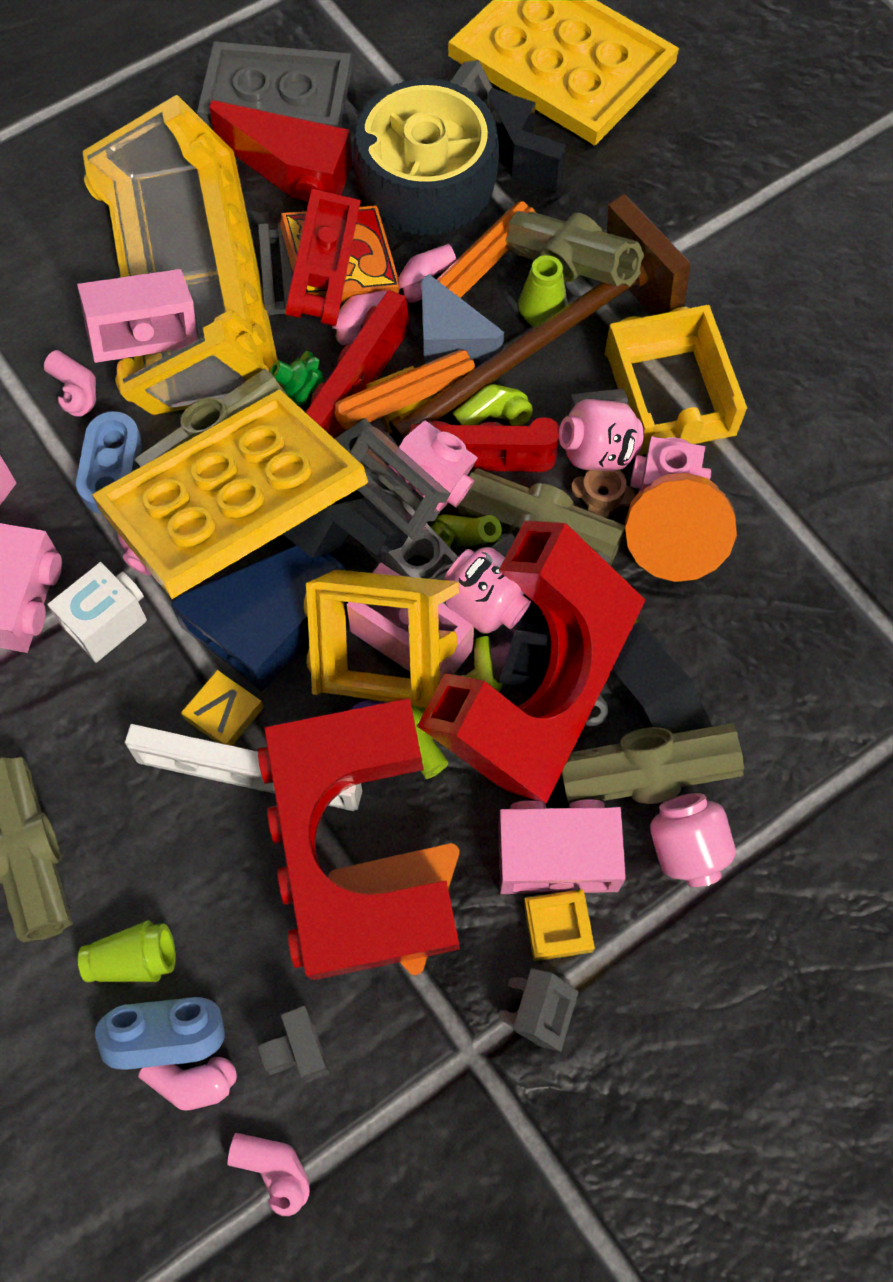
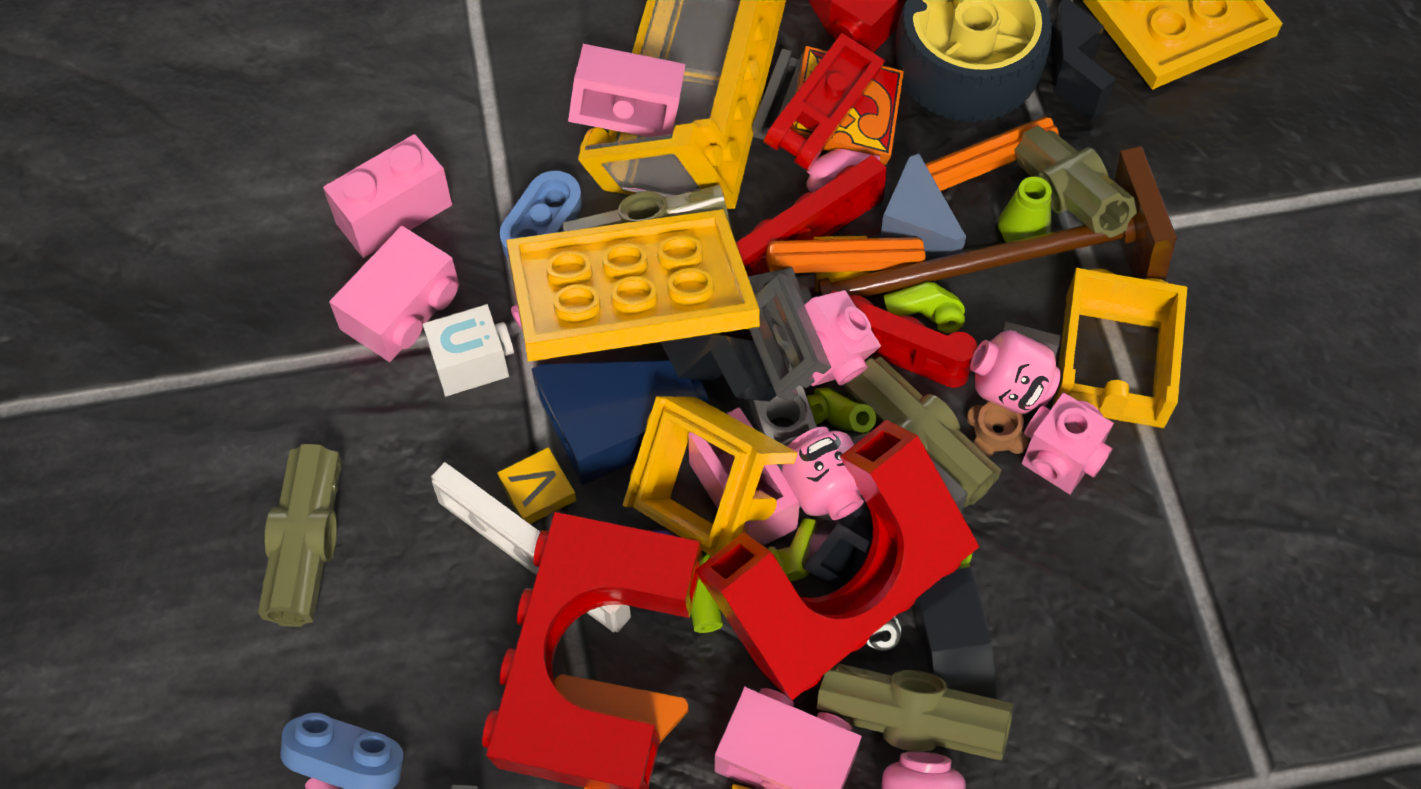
camera: 25 degrees right, 5 degrees down
(78, 383) = (549, 133): bright pink arm -> none
(130, 955) = (348, 672): lime cone -> none
(299, 377) = (749, 206): green plant -> none
(430, 262) = (923, 143): bright pink arm -> none
(680, 527) = (1053, 493): orange tile -> none

